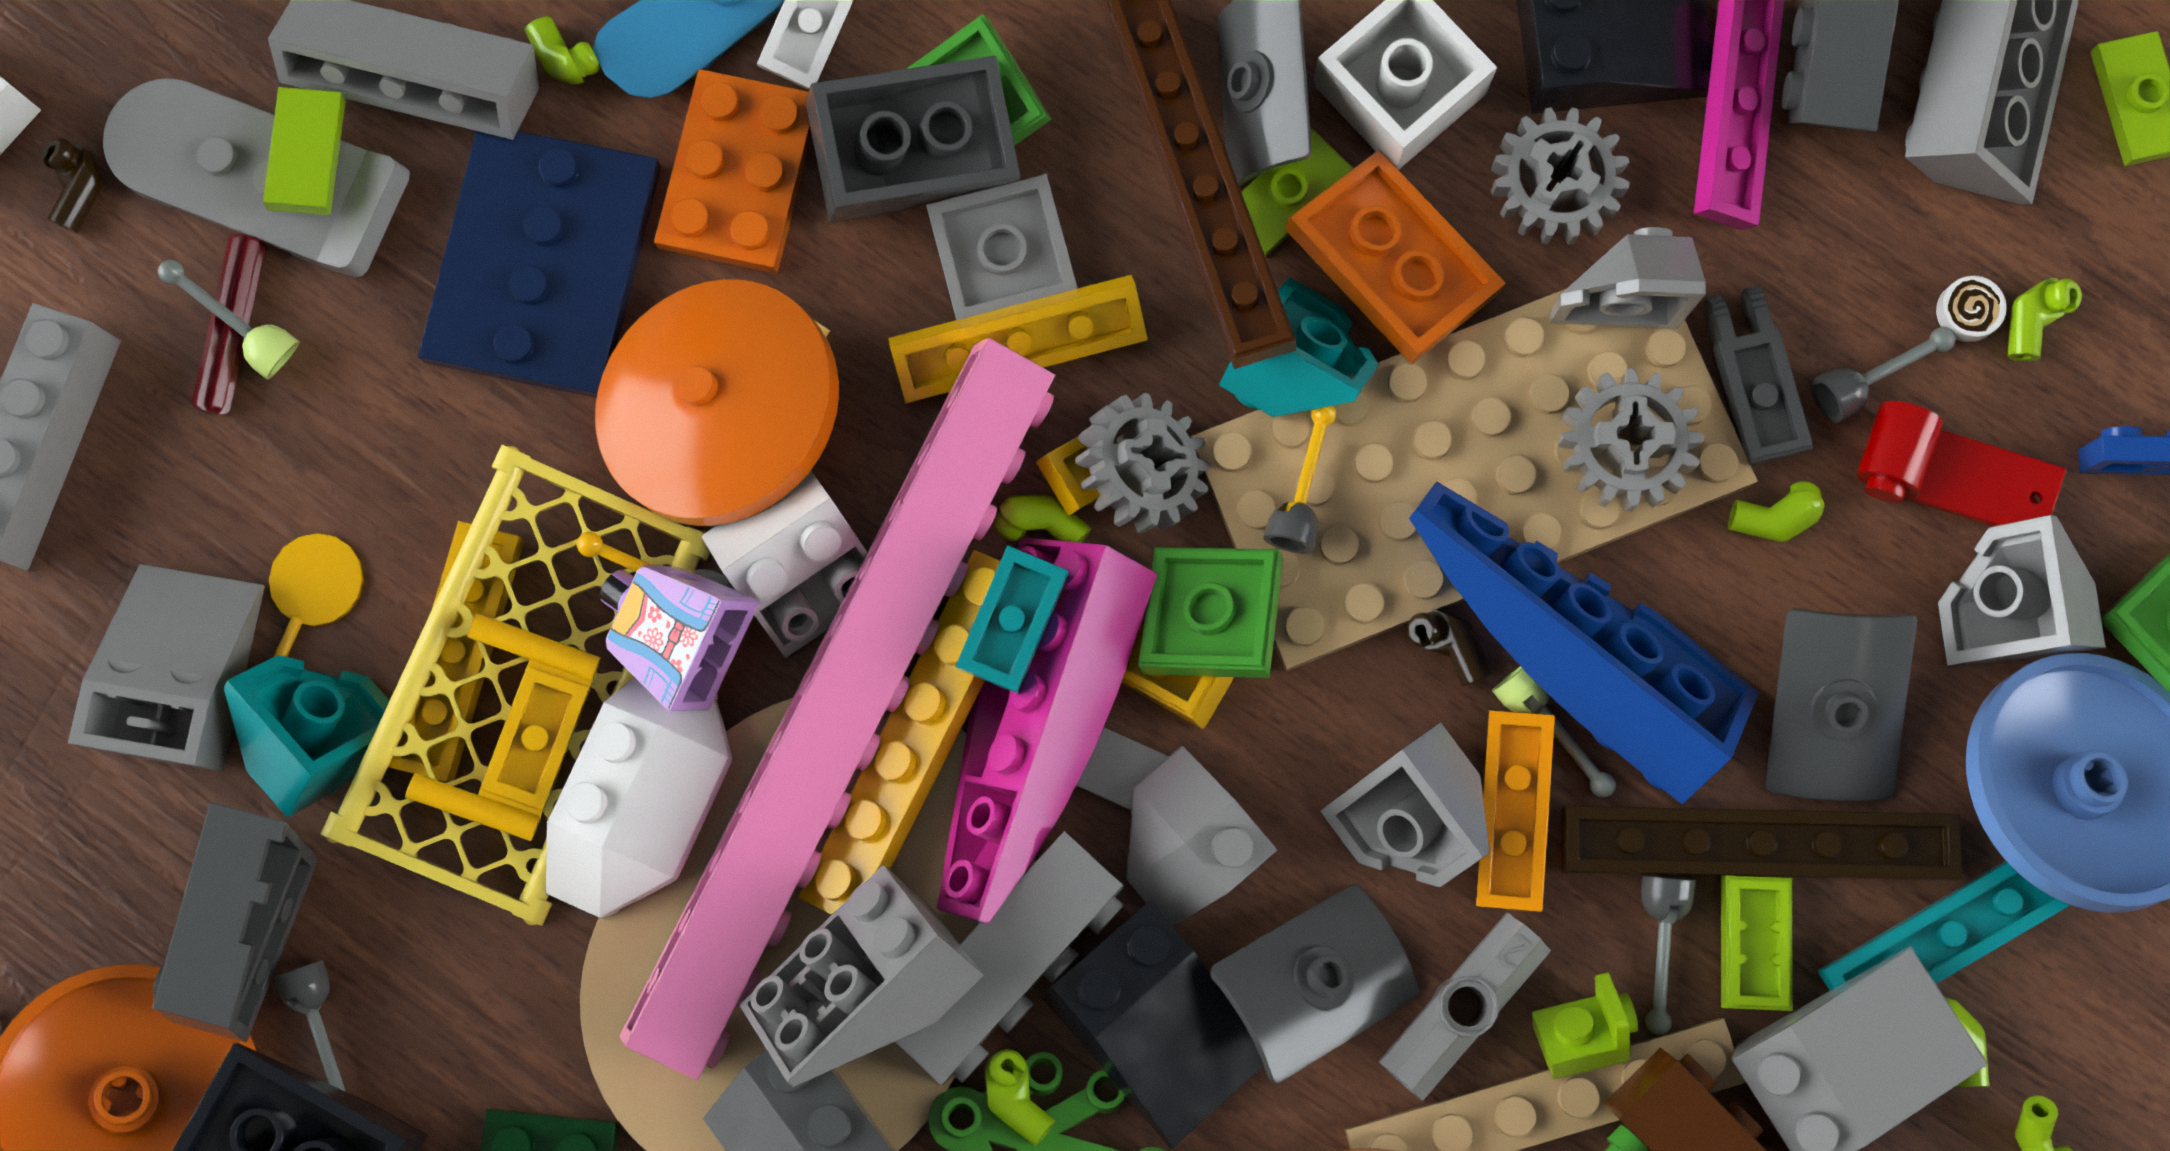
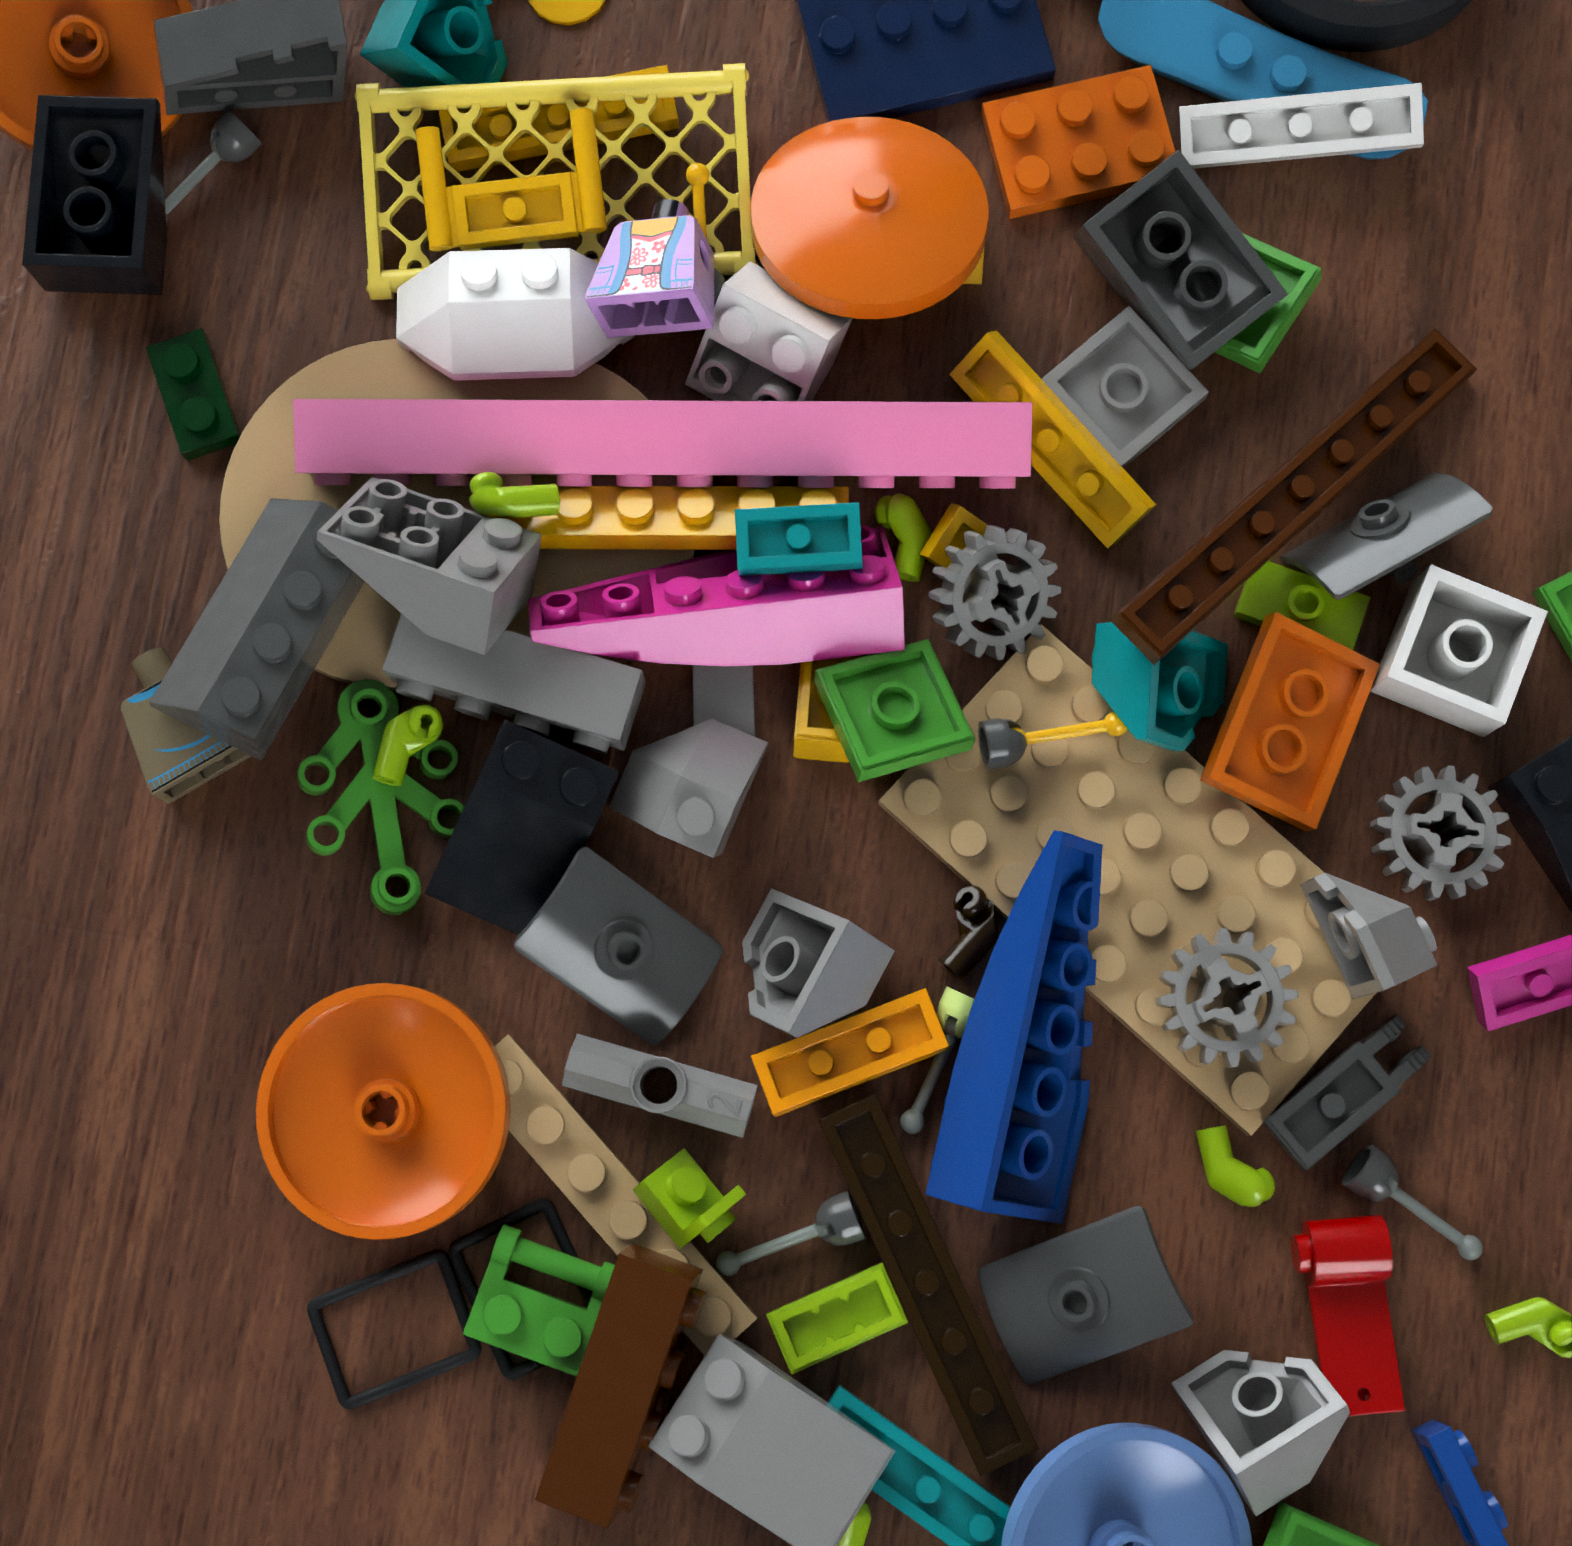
camera: 60 degrees right, 0 degrees up
(837, 879) = (493, 499): none -> lime arm
(1971, 308) = (1512, 1261): tile -> none

